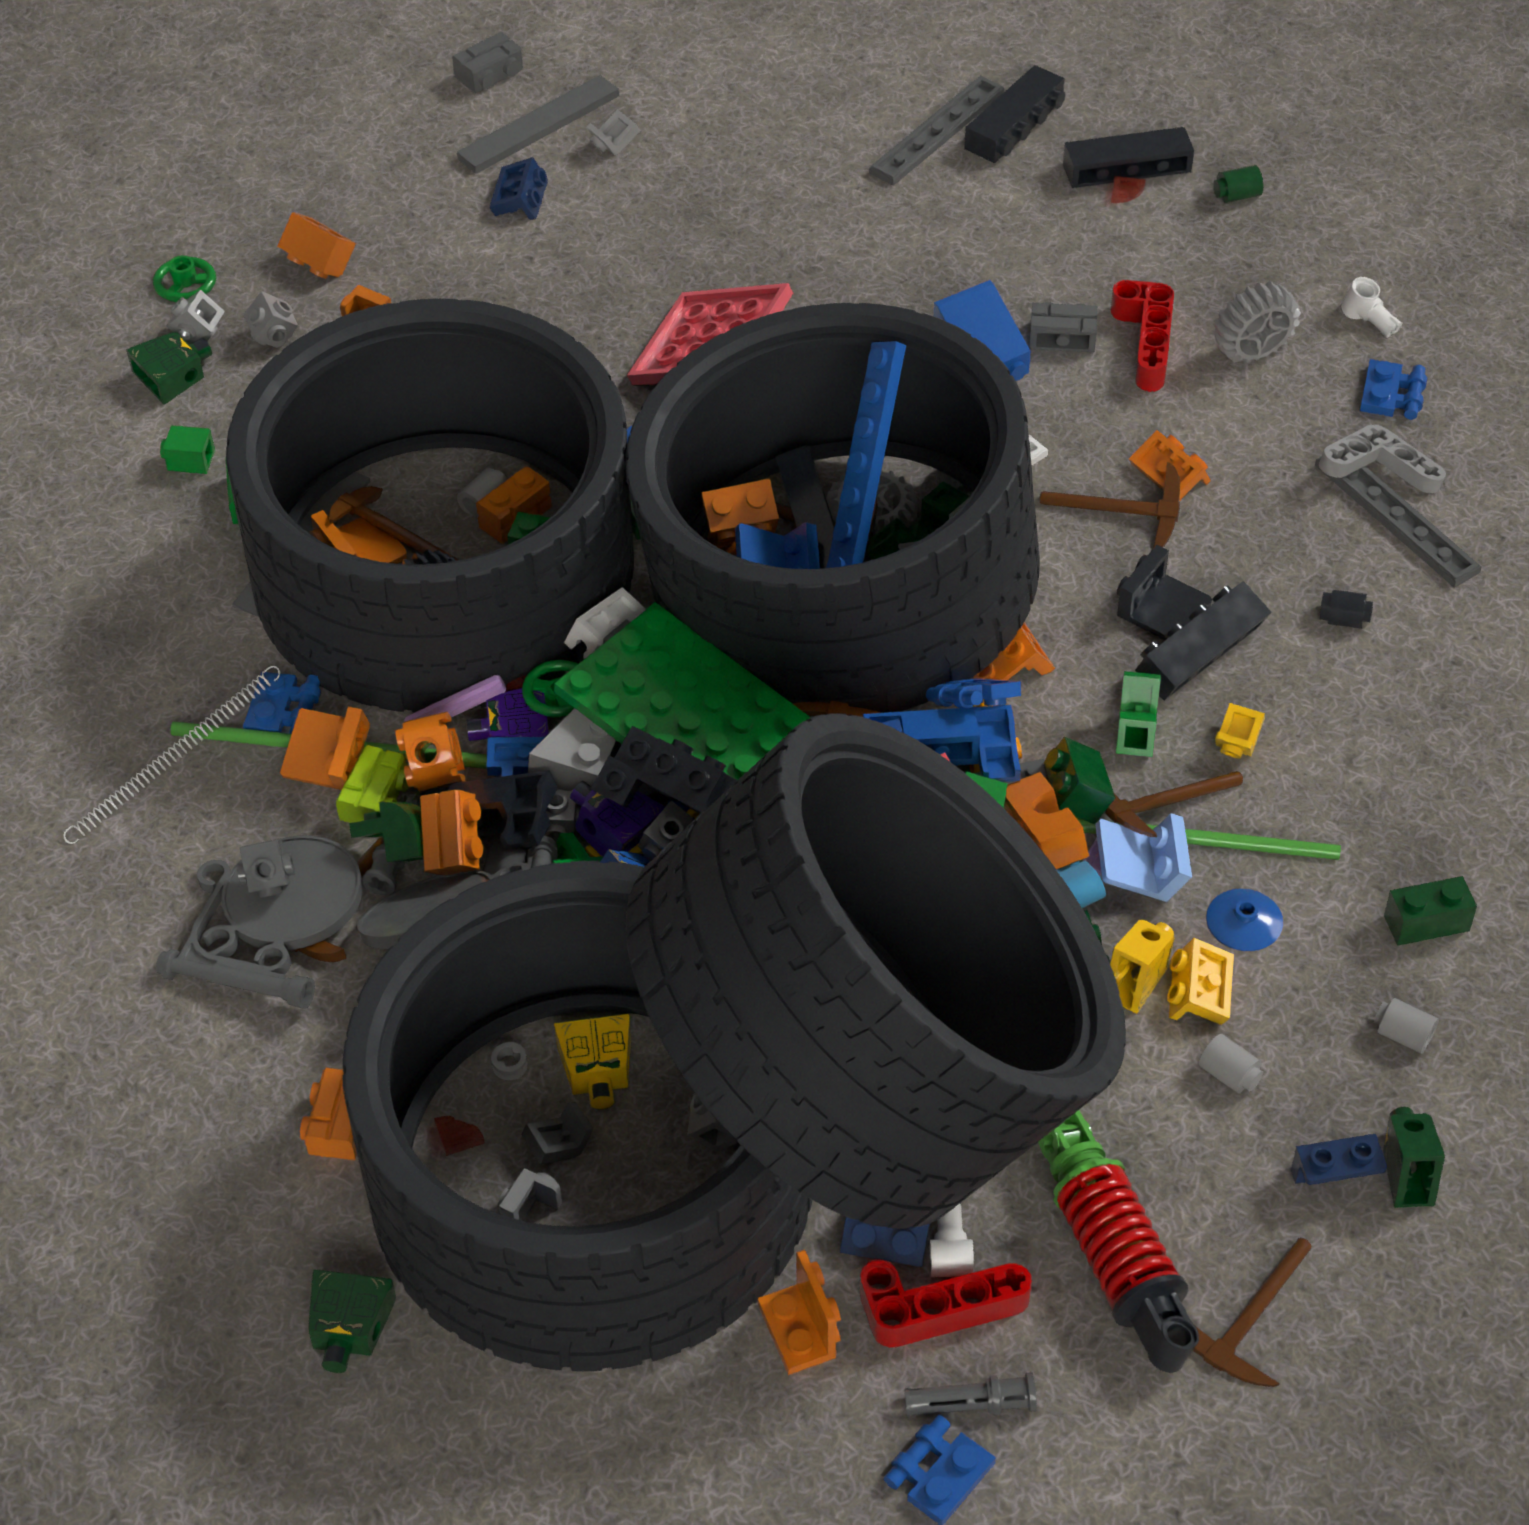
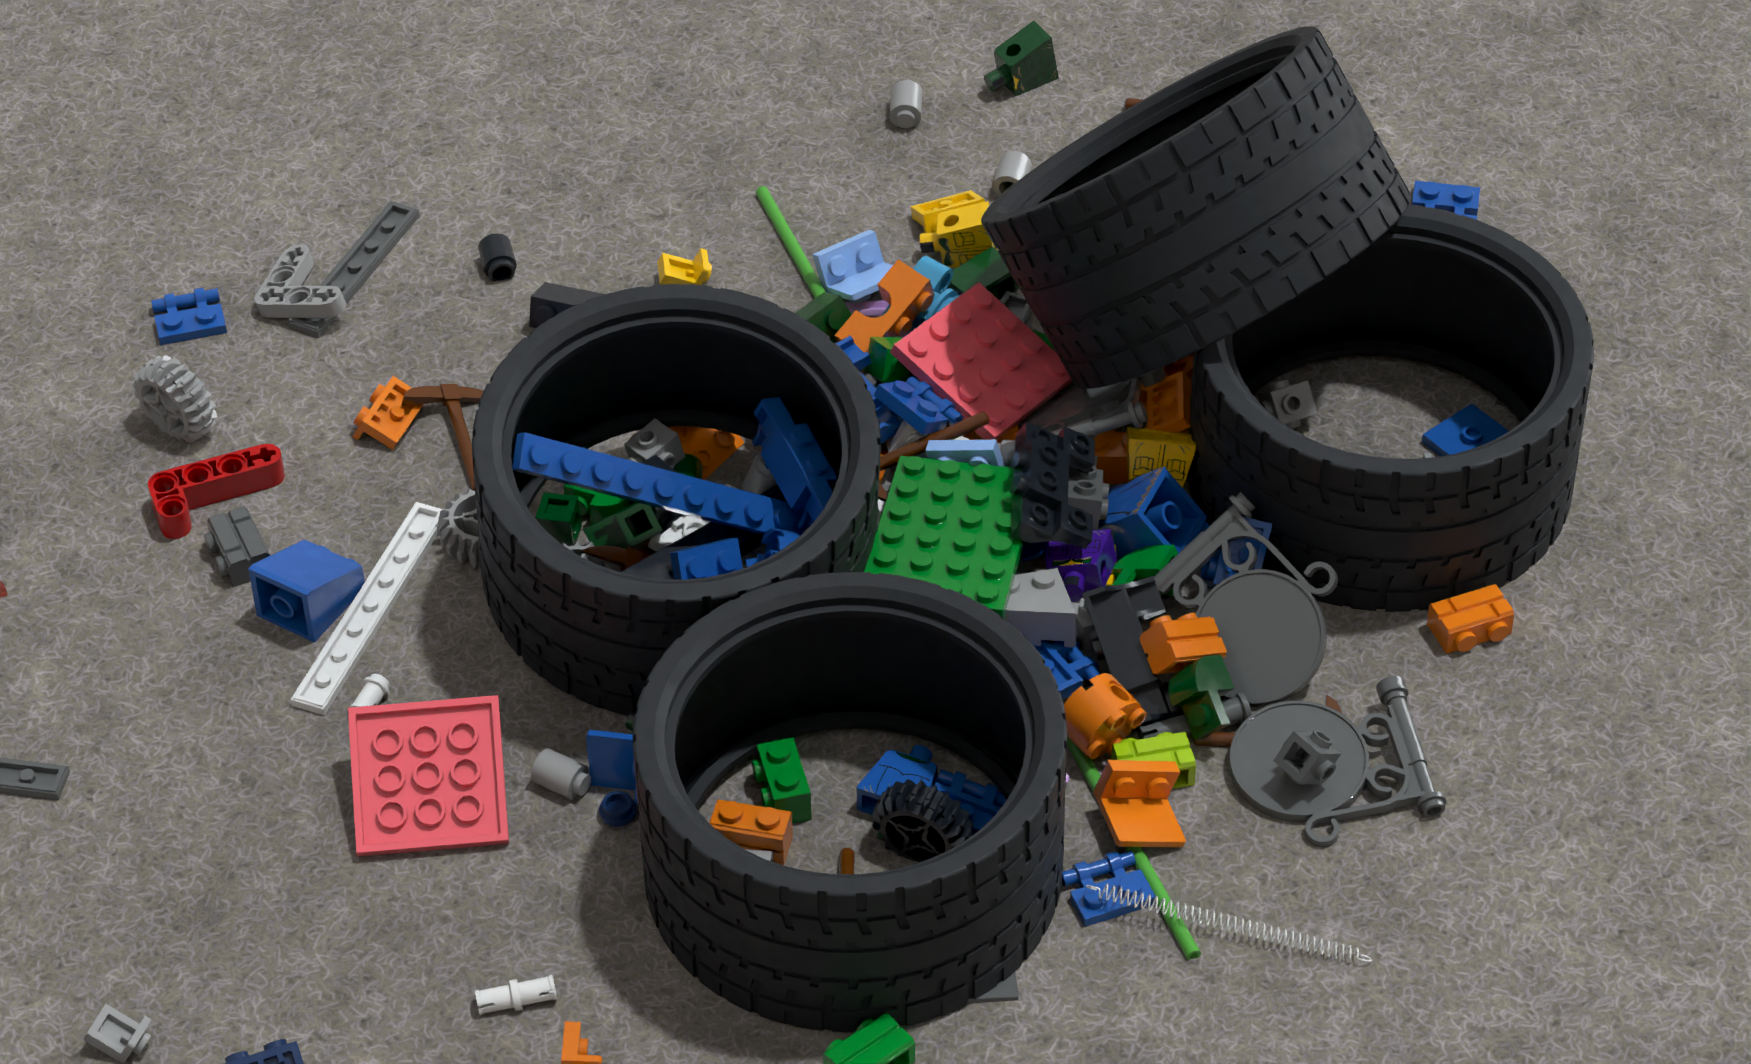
camera: 120 degrees left, 5 degrees down
(347, 1315) = (1618, 527): dark green torso -> none
(1124, 811) = (832, 286): reddish brown piece -> none
(1241, 930) = (864, 215): blue dish -> none
(1338, 1160) = (1057, 95): dark blue bracket -> none
(1364, 304) = (83, 356): white pin -> none
(1430, 910) = (793, 119): dark green brick -> none

